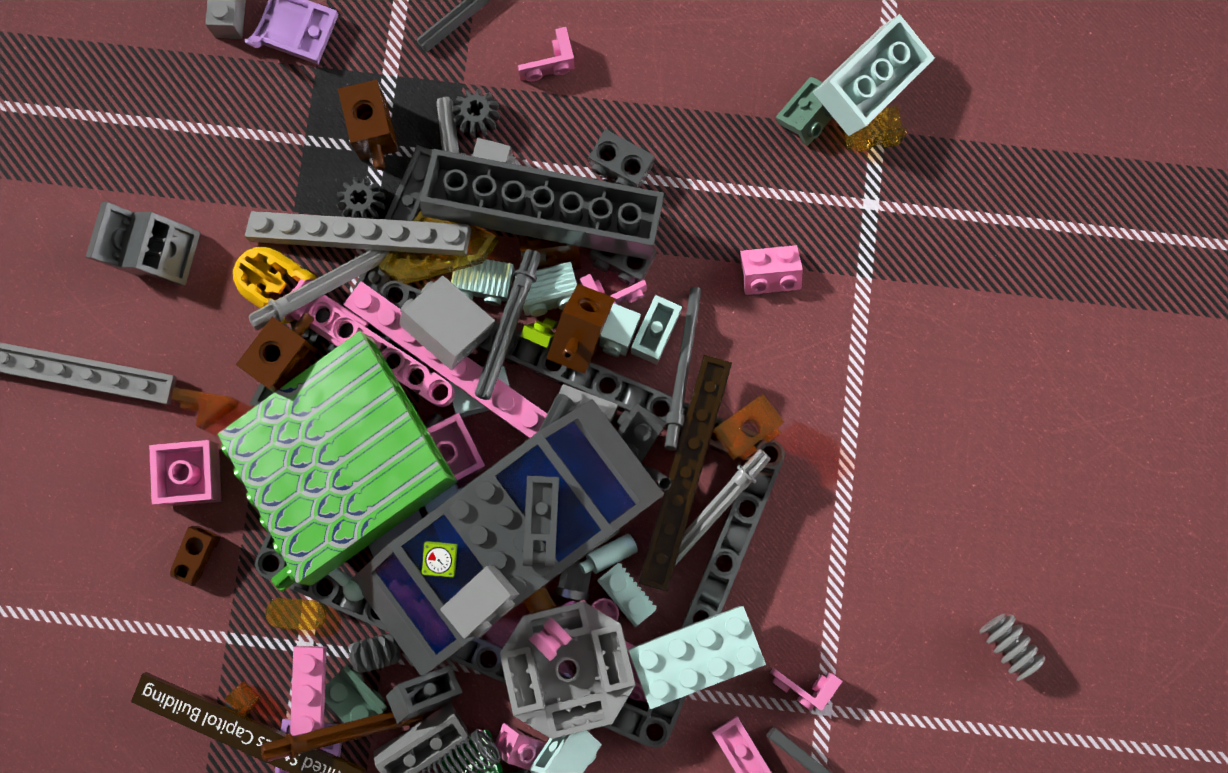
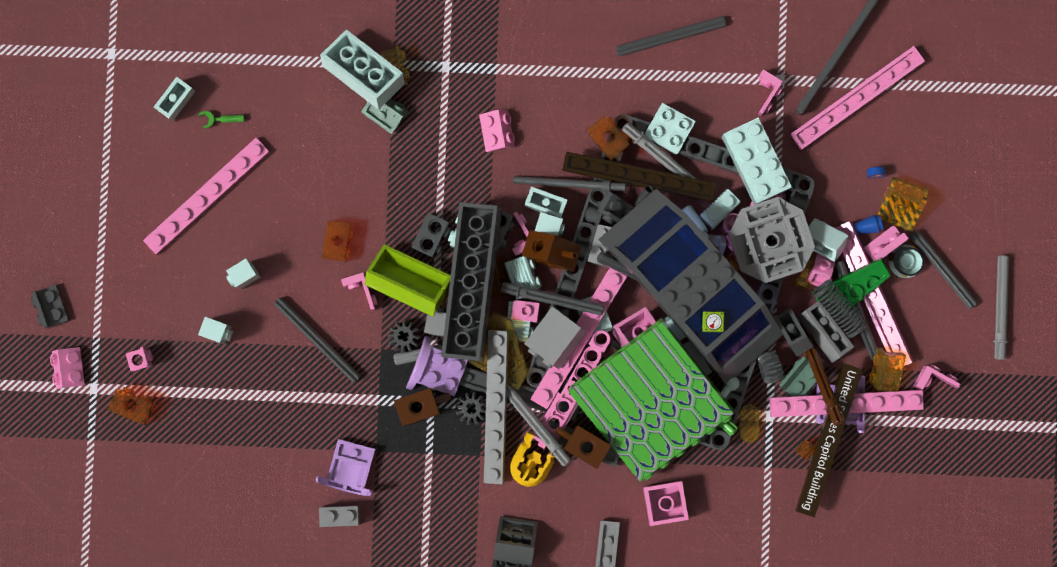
camera: 90 degrees left, 5 degrees up
(193, 554) = (717, 492): reddish brown leg -> none
(211, 408) = (618, 491): clear orange slope -> none
(413, 150) = (436, 371): none -> lavender piece
(480, 602) = (737, 292): light grey brick -> none
(494, 288) = (525, 311): none -> bright pink bracket
(506, 716) = (802, 281): none -> clear yellow piece
(540, 332) = (554, 278): lime plate -> none
(540, 519) = (684, 259): dark grey plate -> none
(550, 638) = (754, 251): bright pink wheel -> none
(556, 116) = (408, 280): none -> lime piece
(614, 18) = (333, 231): none -> clear orange brick
(757, 525) = (669, 128): none -> light aqua bracket
(901, 542) = (670, 36): none -> dark grey axle

